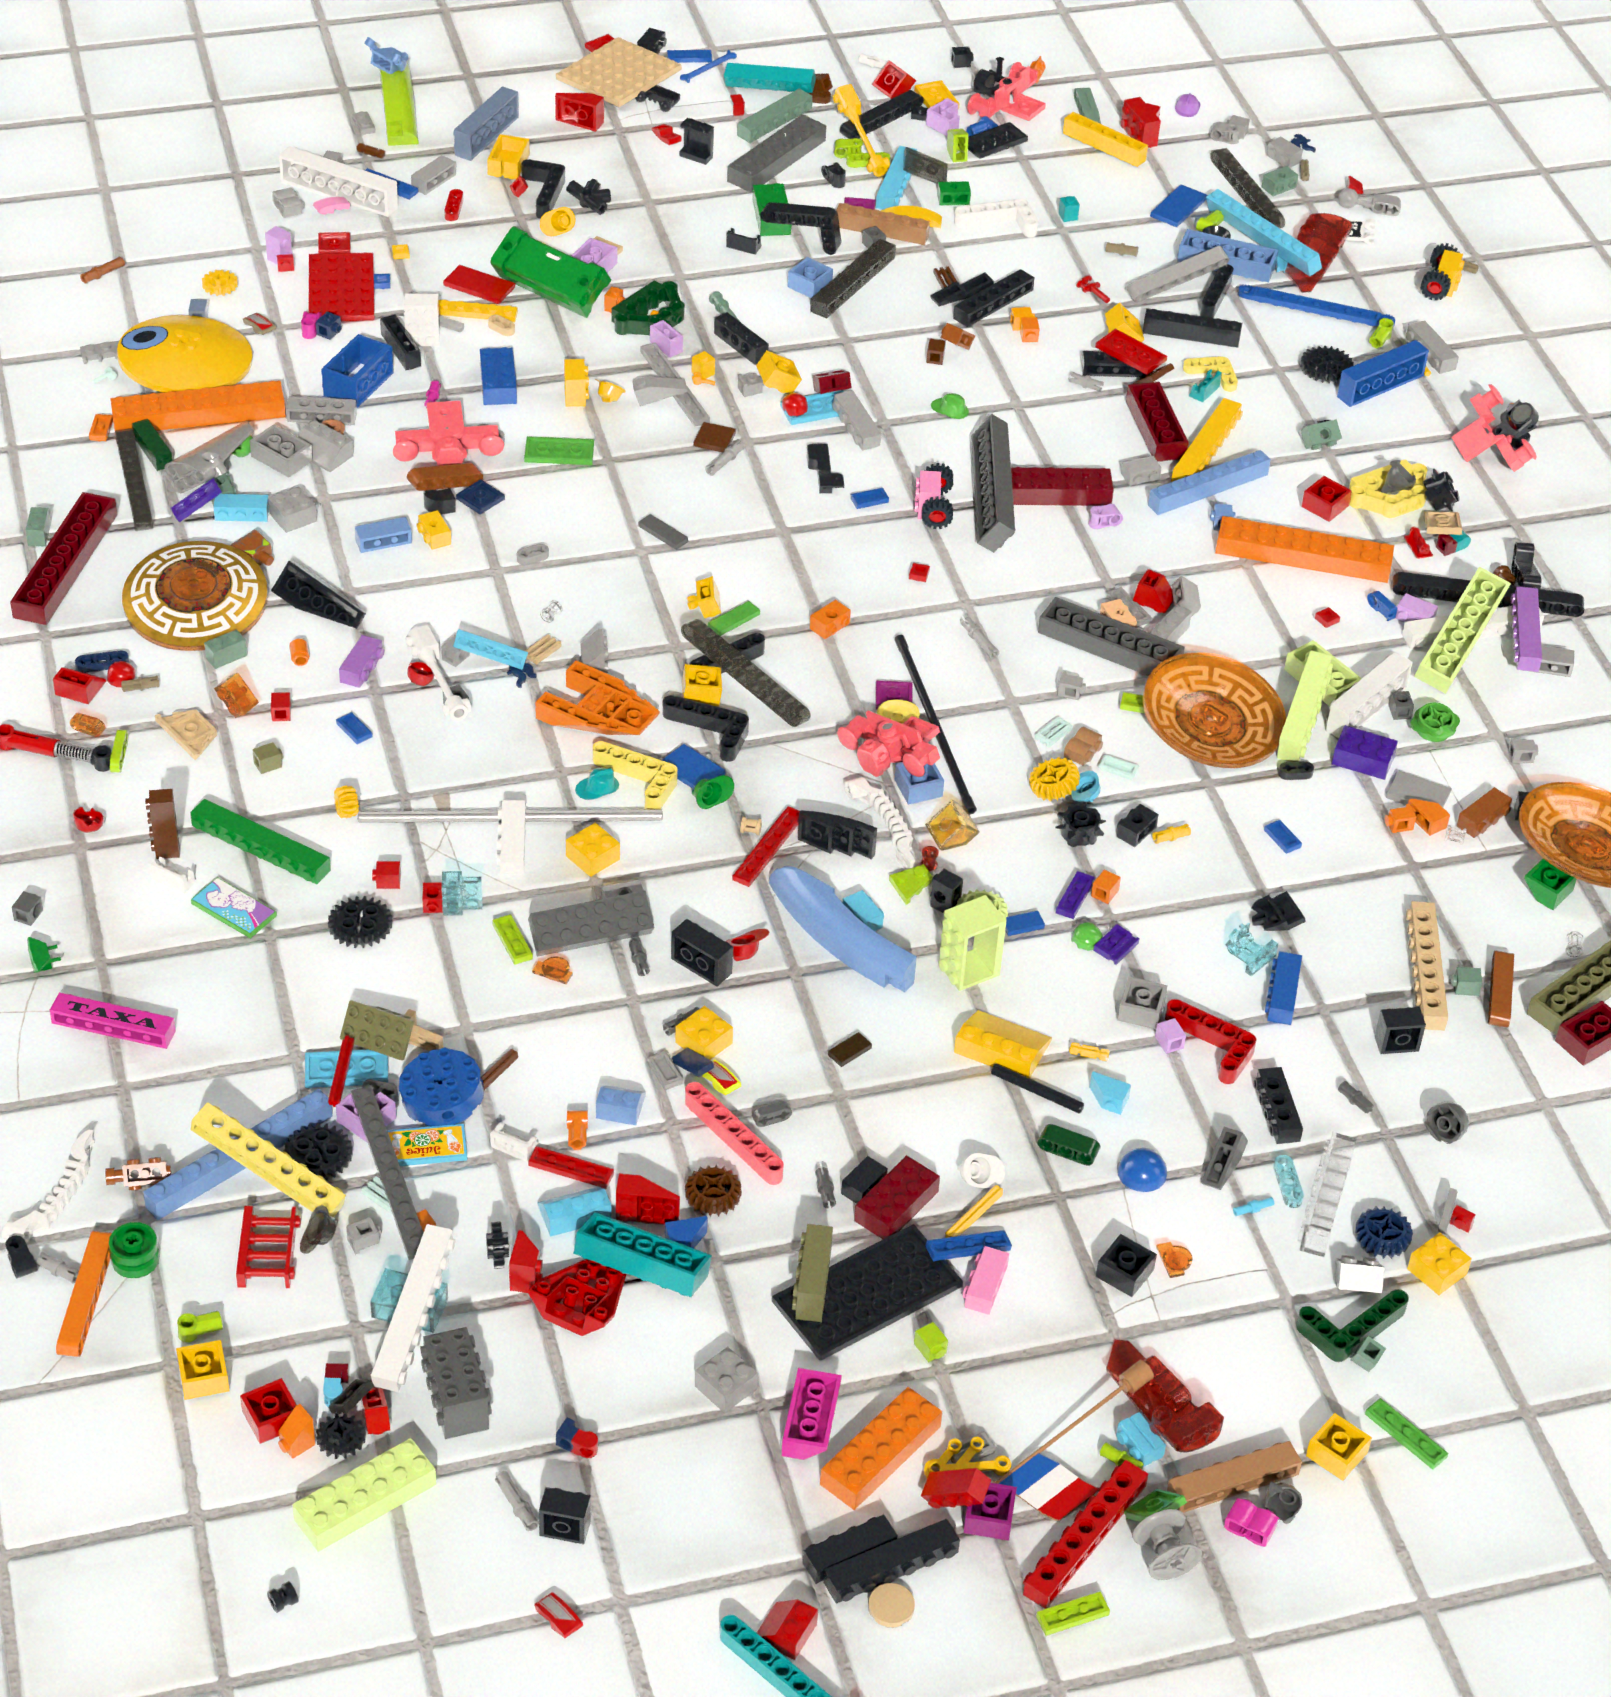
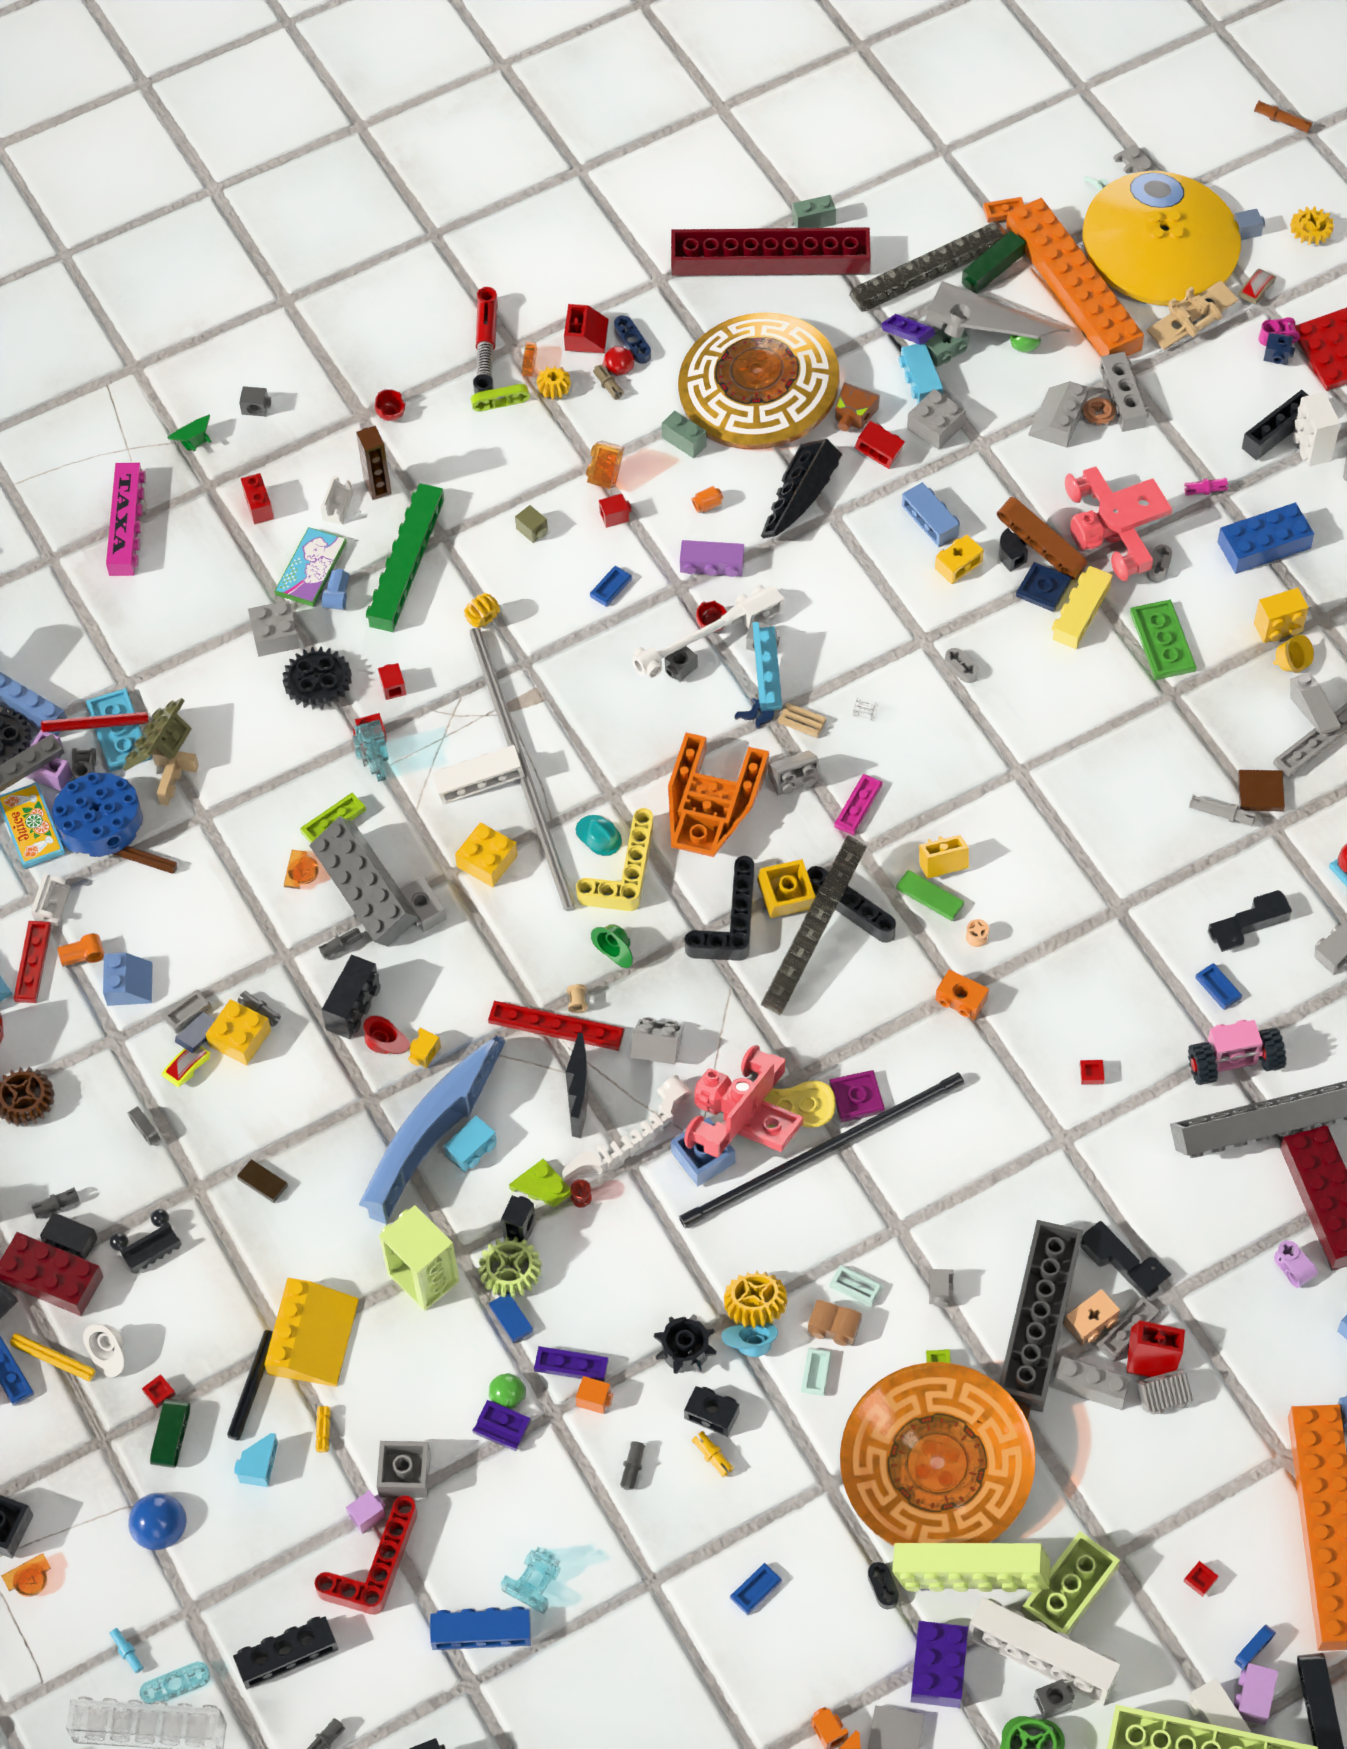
camera: 80 degrees right, 15 degrees up
(123, 714) = (553, 382): none -> yellow gear
(142, 924) = (257, 498): none -> red brick
(188, 730) = (550, 446): tan wing -> none
(264, 358) = (1208, 303): none -> tan piece
(276, 895) = (335, 594): none -> medium blue piece
(281, 450) = (1028, 376): light grey brick -> none
(293, 939) = (273, 628): none -> light grey brick
(301, 543) = (879, 444): none -> red brick
(376, 370) = (1197, 414): blue hose -> none
(513, 479) = (1082, 607): none -> light yellow brick
(634, 637) = (858, 804): none -> dark pink tile
(663, 531) = (1057, 783): dark grey tile -> none
(693, 766) = (656, 917): blue tile -> none
(734, 1133) = (102, 1105): coral beam -> none
(763, 920) = (424, 1048): none -> yellow brick
(779, 600) = (980, 928): none -> light nougat wheel
(808, 787) = (656, 1040): none -> light grey slope
(891, 1129) = (149, 1247): none -> black gear
(952, 826) = (642, 1207): clear yellow slope -> none
(975, 632) = (1000, 1161): light grey pin -> none
(1028, 1146) = (158, 1391): none -> red plate
(1090, 588) = (1107, 1248): none -> black piece
(1169, 879) = (632, 1465): none -> dark grey axle
(1224, 1158) = (189, 1605): dark grey slope -> none
(1277, 913) = (608, 1601): black plate -> none

